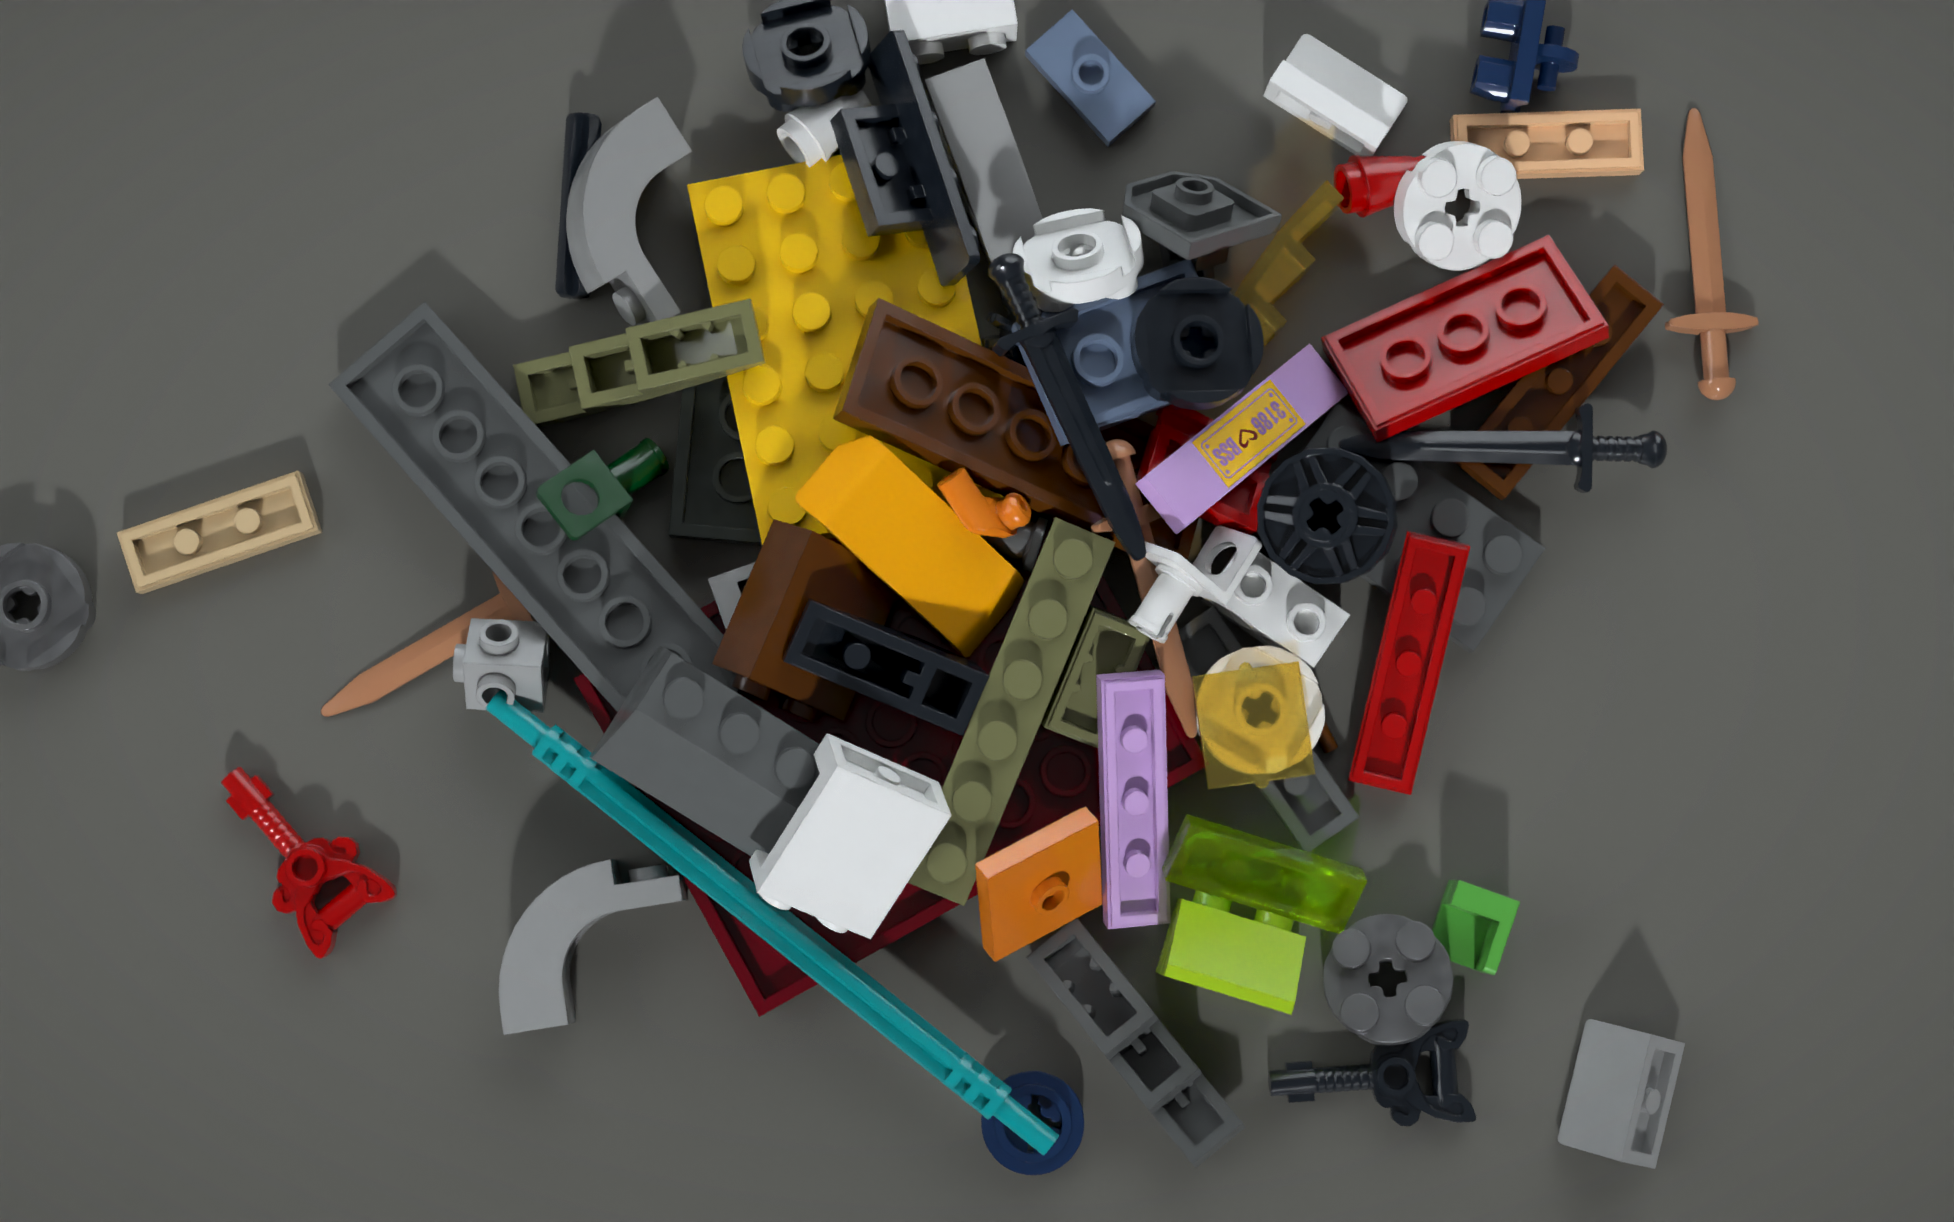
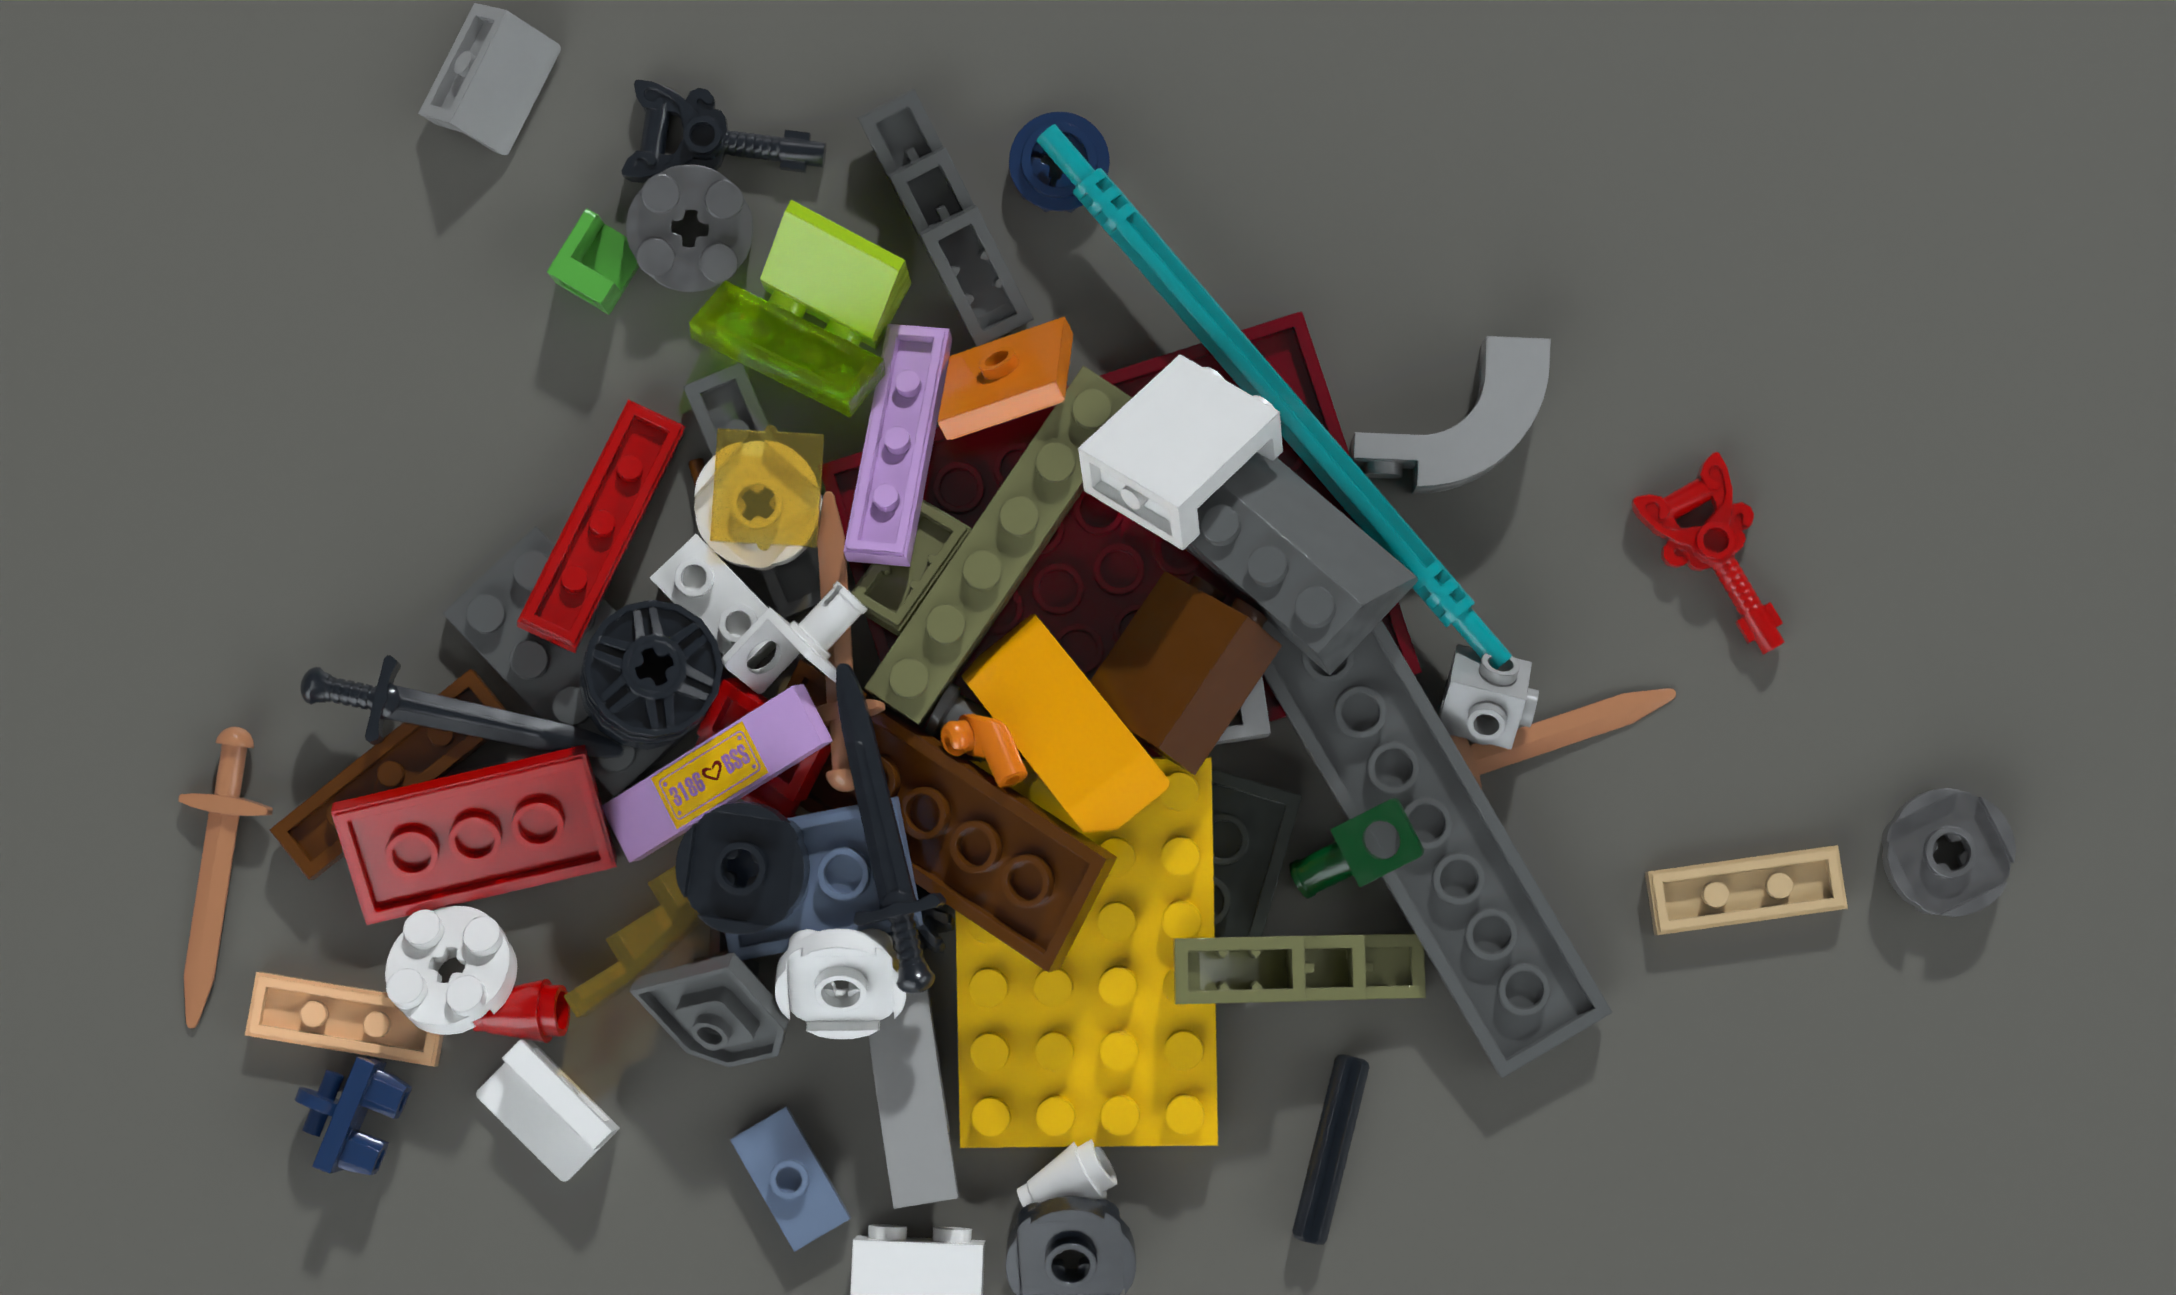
camera: 160 degrees left, 0 degrees up
(605, 206) = (1304, 1135): light grey arch -> none
(887, 665) = (1109, 609): black slope -> none
(901, 163) = (999, 1116): black bracket -> none

